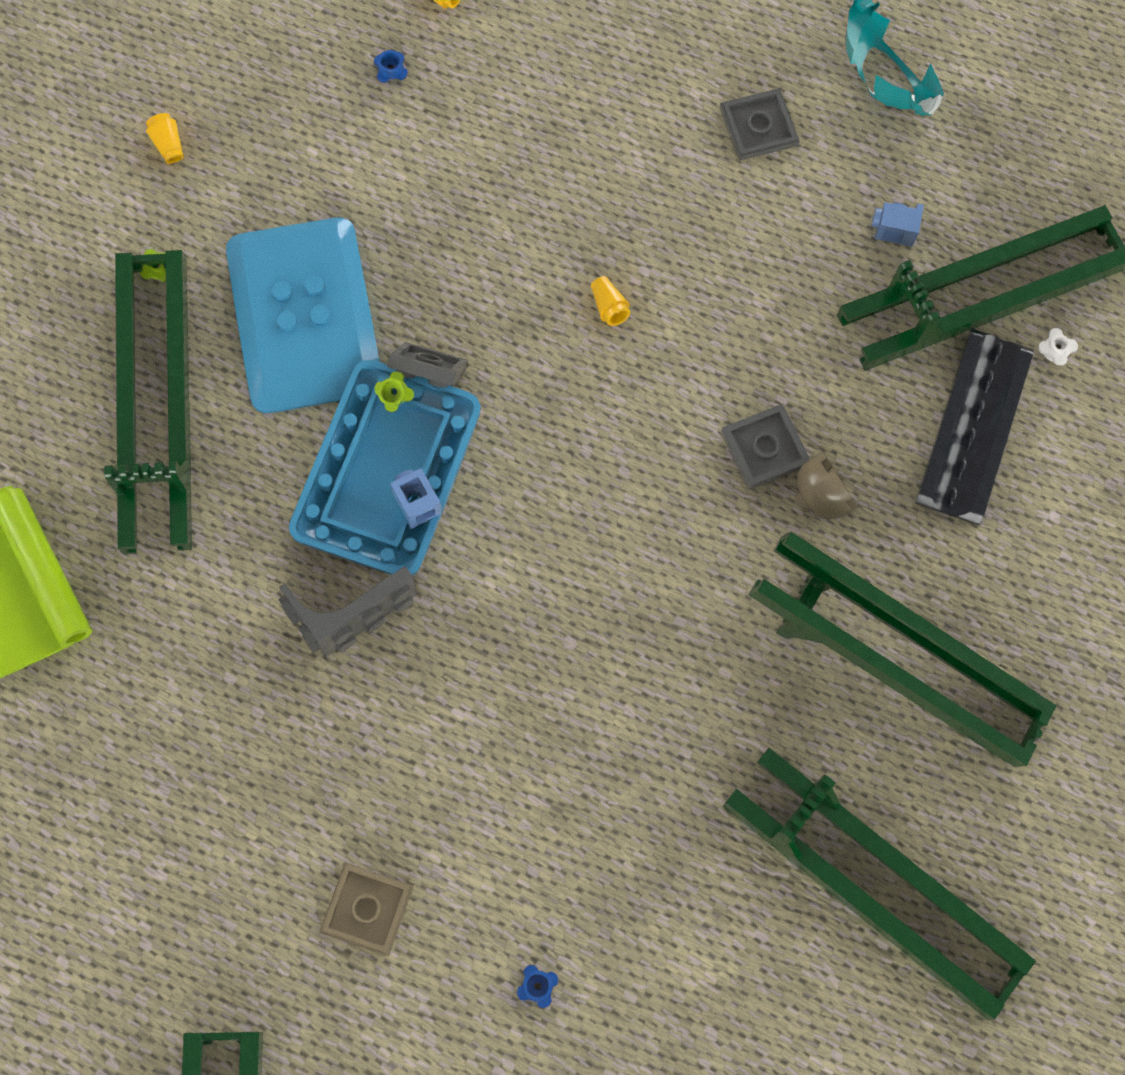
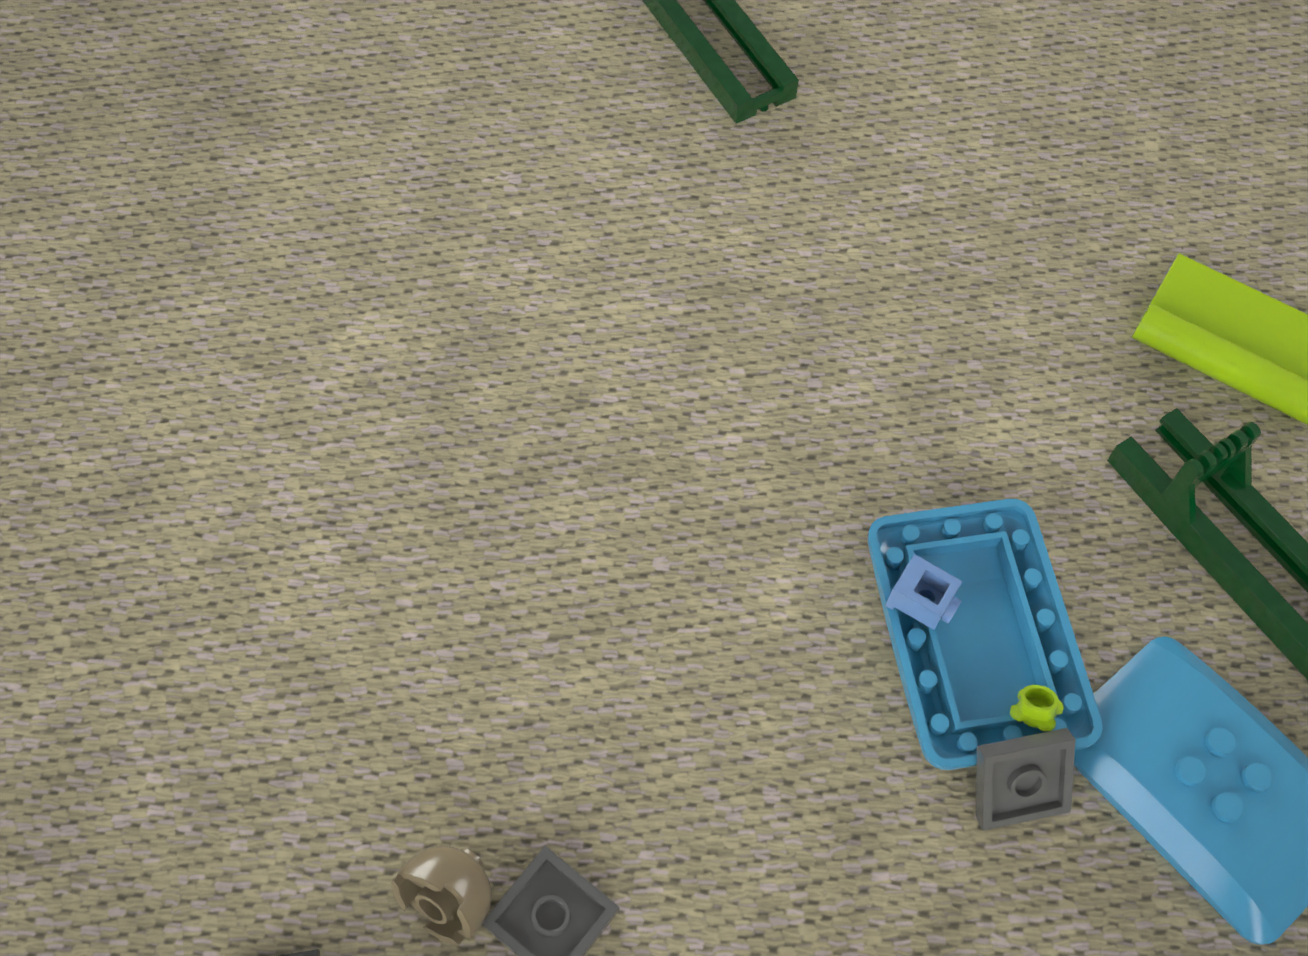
camera: 155 degrees right, 10 degrees down
(339, 628) = (924, 425): dark grey bracket -> none
(366, 909) = (710, 240): dark tan tile -> none
(547, 982) = (516, 239): blue plate -> none
(808, 625) = (399, 749): dark green piece -> none
(822, 798) = (299, 521): dark green piece -> none

